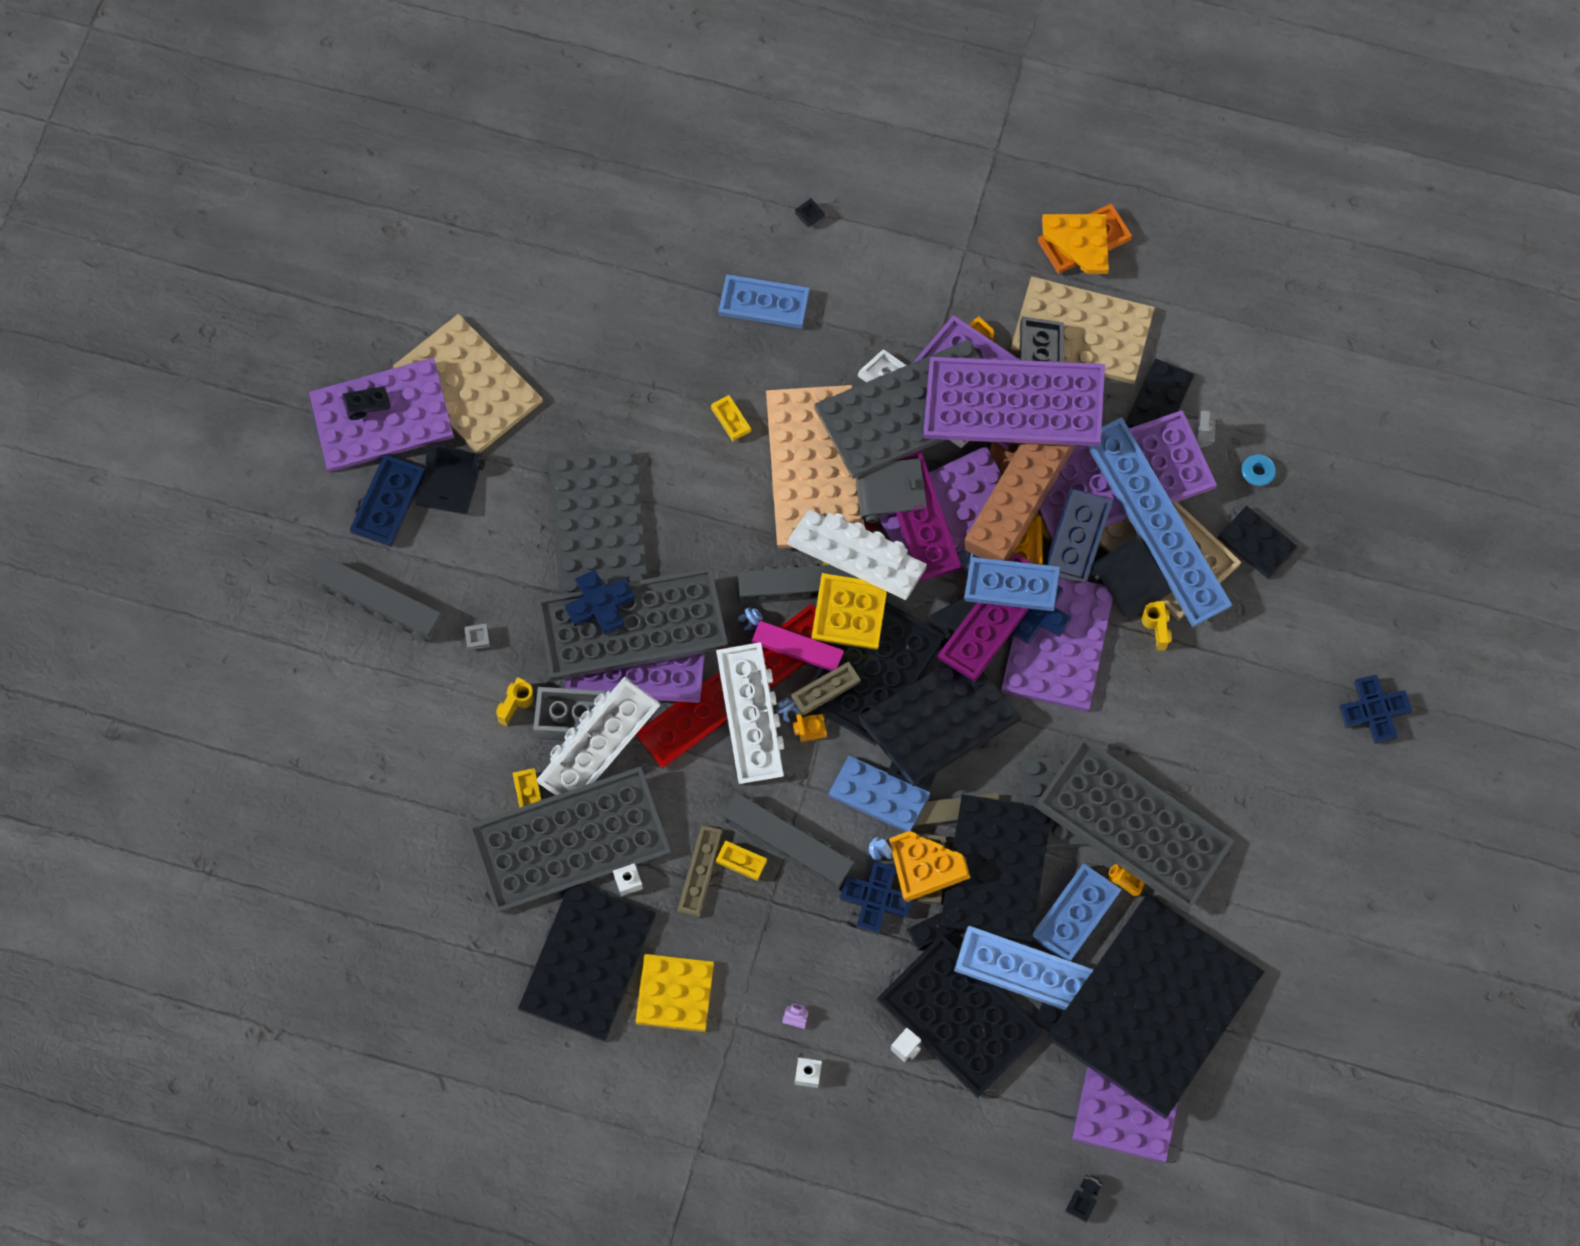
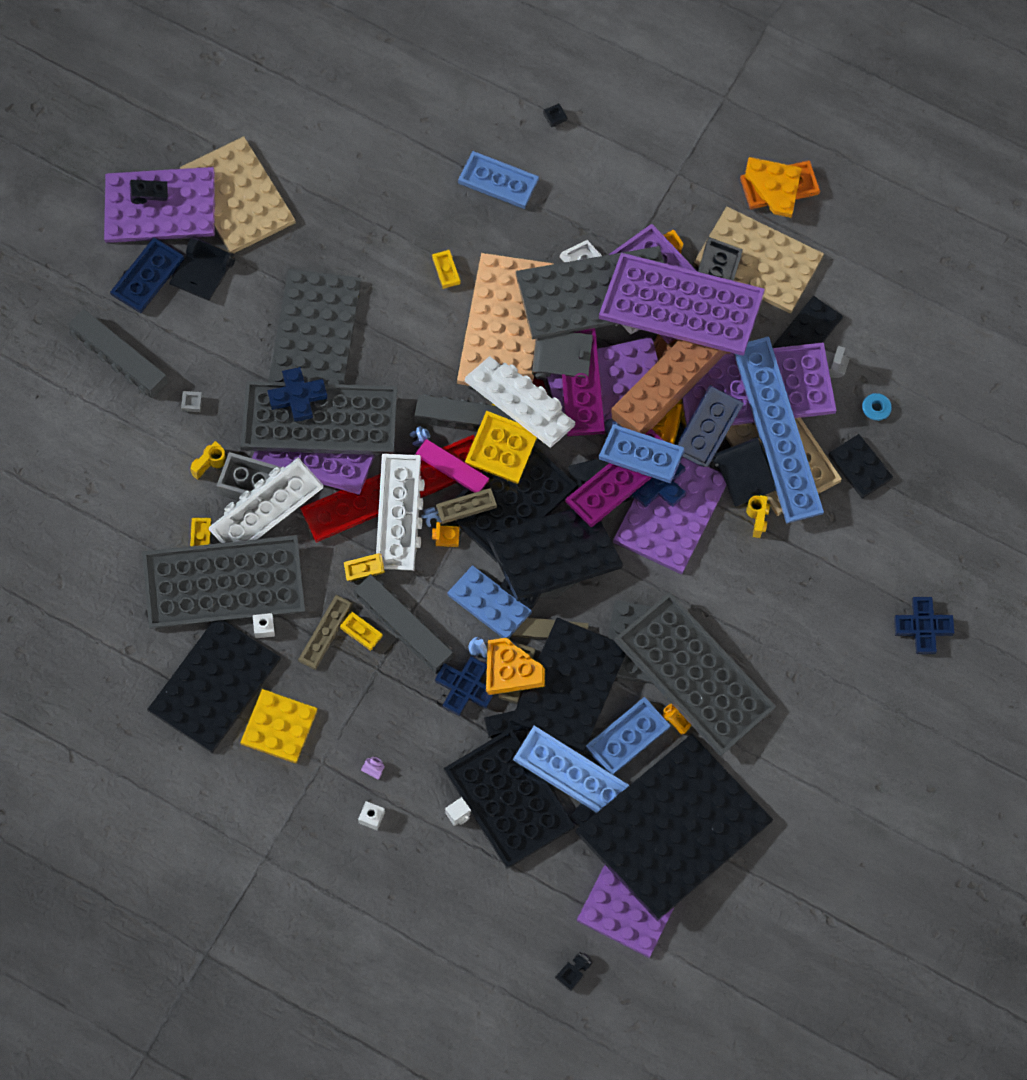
camera: 10 degrees right, 0 degrees up
(726, 786) = (363, 567): none -> yellow plate

